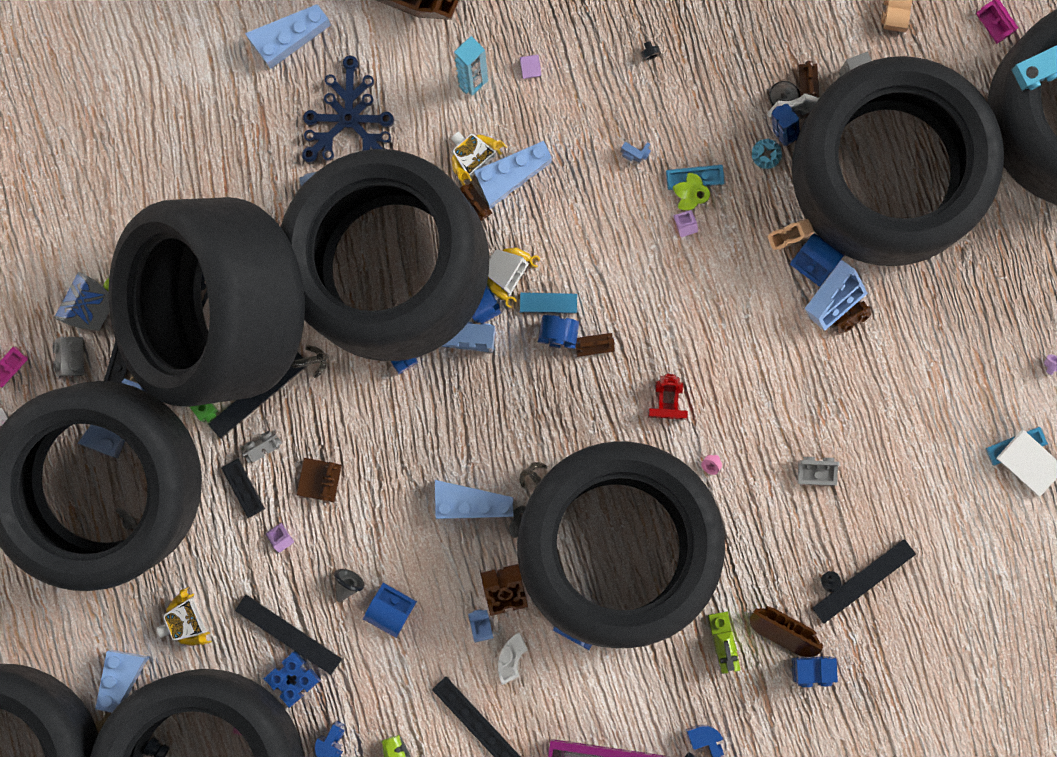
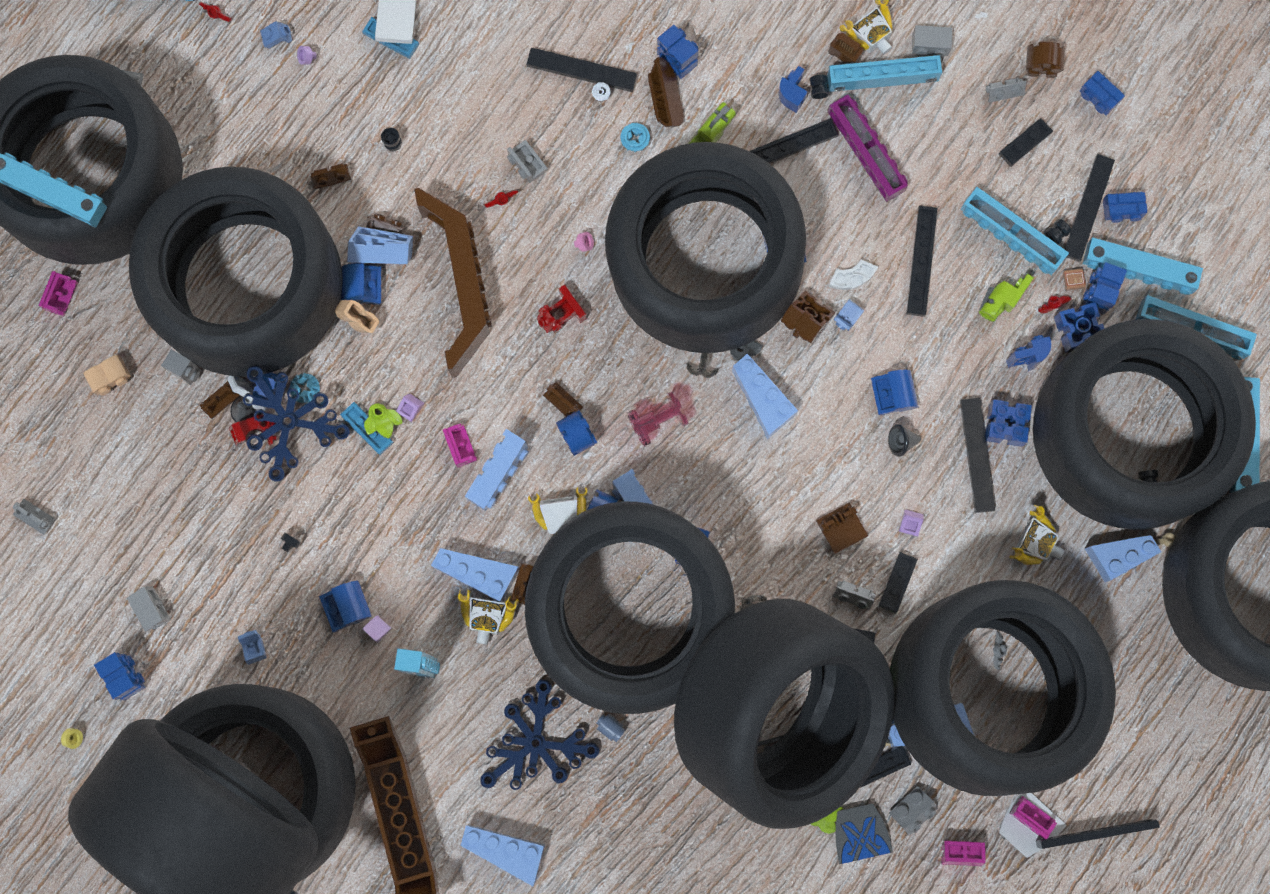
camera: 130 degrees left, 5 degrees down
(520, 397) = (650, 422): none -> clear pink piece
(548, 303) = (558, 462): dark azure tile -> none
(566, 56) = (345, 605): none -> blue brick
(578, 249) = (497, 471): none -> light blue wedge
(623, 236) = (459, 445): none -> dark pink hinge
(632, 153) = (386, 491): medium blue bracket -> none
(663, 693) = (797, 142): none -> black tile
(755, 344) = (466, 276): none -> reddish brown slope
(768, 82) = (241, 429): none -> red tile
(768, 116) = (274, 401): none -> dark blue plant
(776, 571) = (638, 130): none -> medium azure gear
(802, 427) = (501, 198): none -> red piece
(927, 377) = (389, 135): none -> black wheel
(933, 297) = (324, 178): none -> reddish brown hinge

